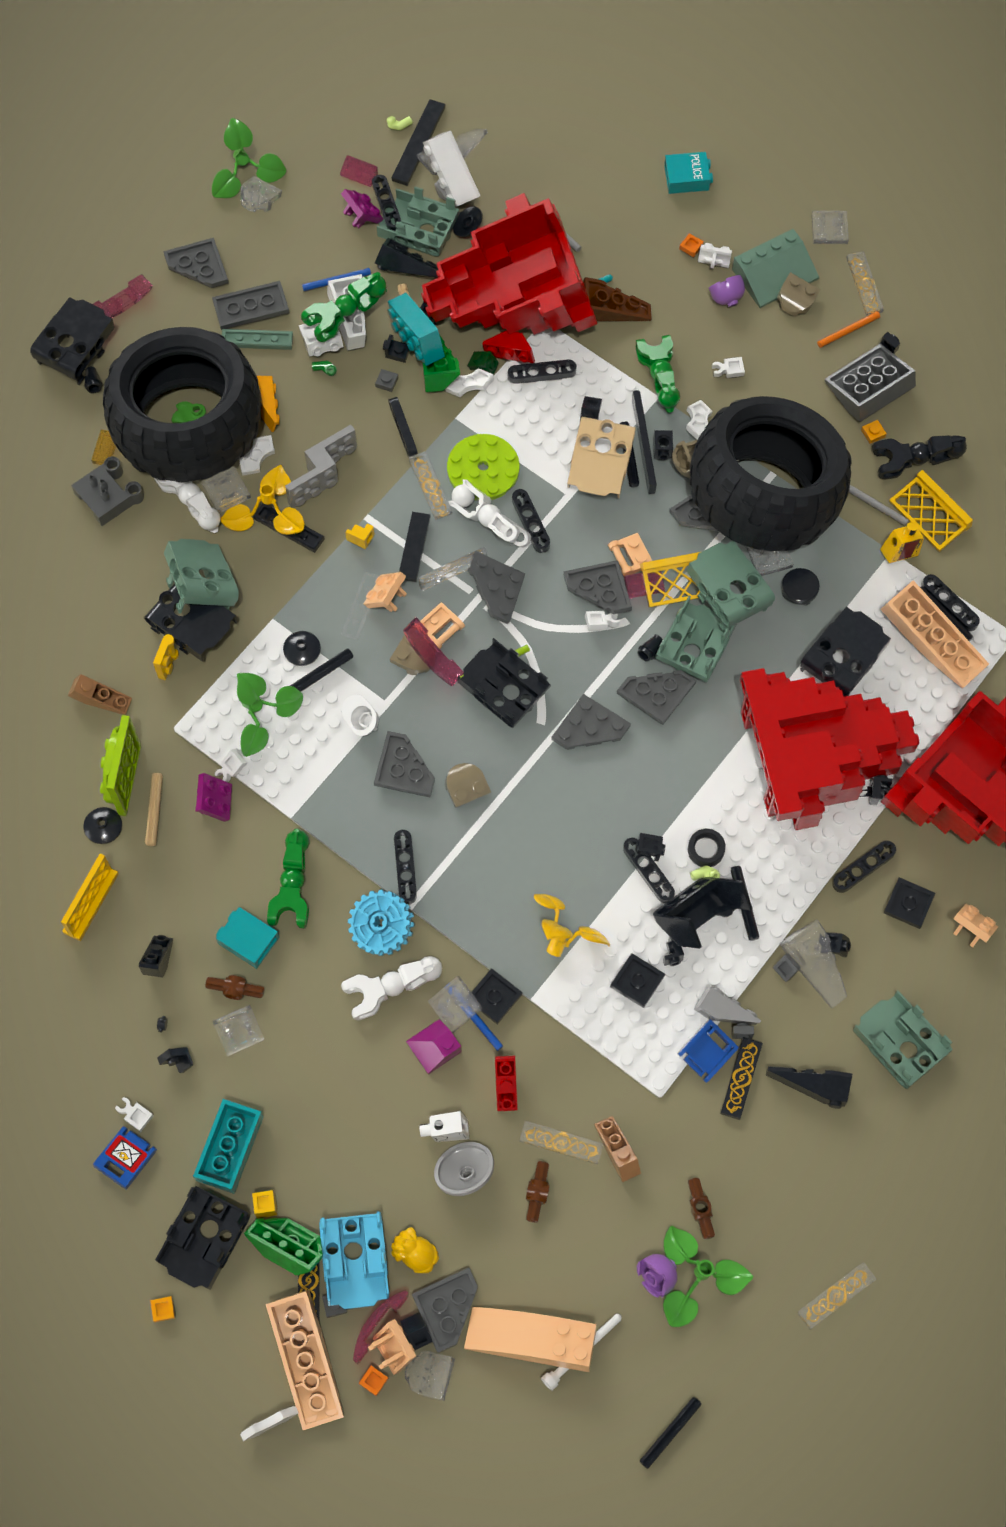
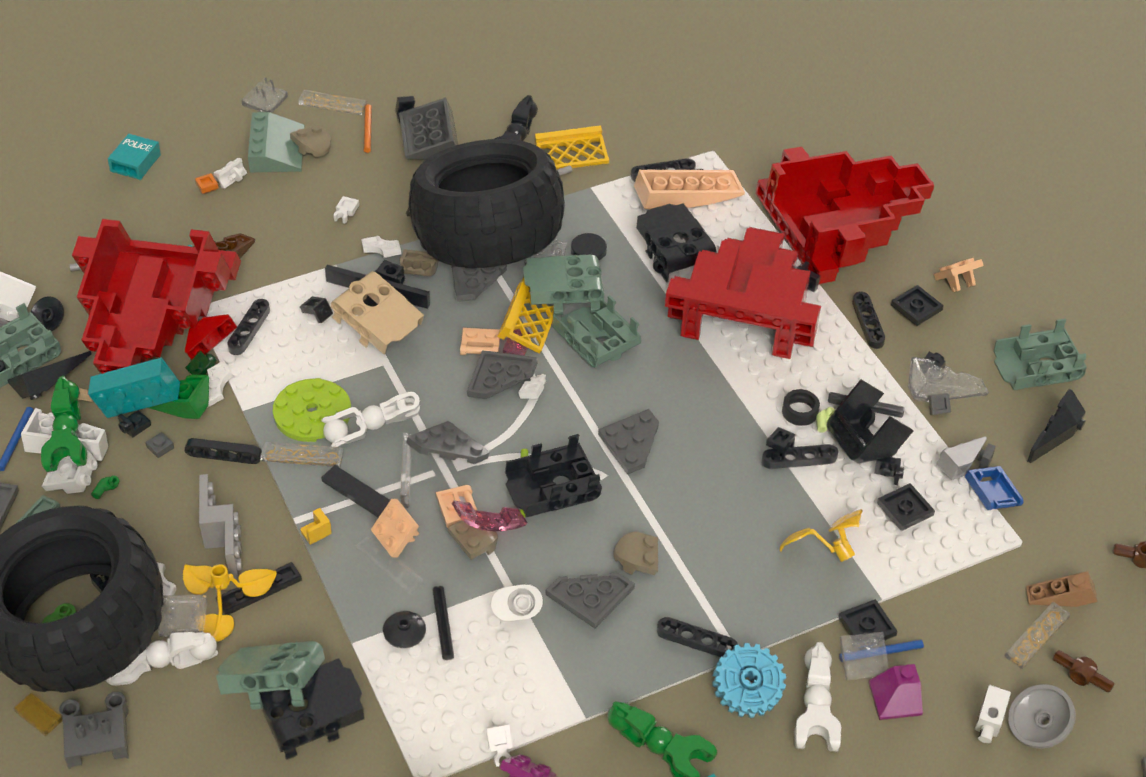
camera: 65 degrees left, 20 degrees down
(165, 657) = (338, 750): yellow plate -> none
(248, 691) = (448, 661): bright green plant -> none
(506, 1083) = (963, 647): red slope -> none
(532, 520) = (371, 398): black beam -> none
(649, 649) = (583, 365): black cone -> none
(657, 692) = (630, 379): dark grey plate -> none
(658, 360) = (302, 246): green piece -> none
(728, 291) = (274, 177): medium lavender cylinder -> none
(741, 1078) = (1029, 479): black tile -> none
(903, 543) = (593, 170): yellow torso -> none

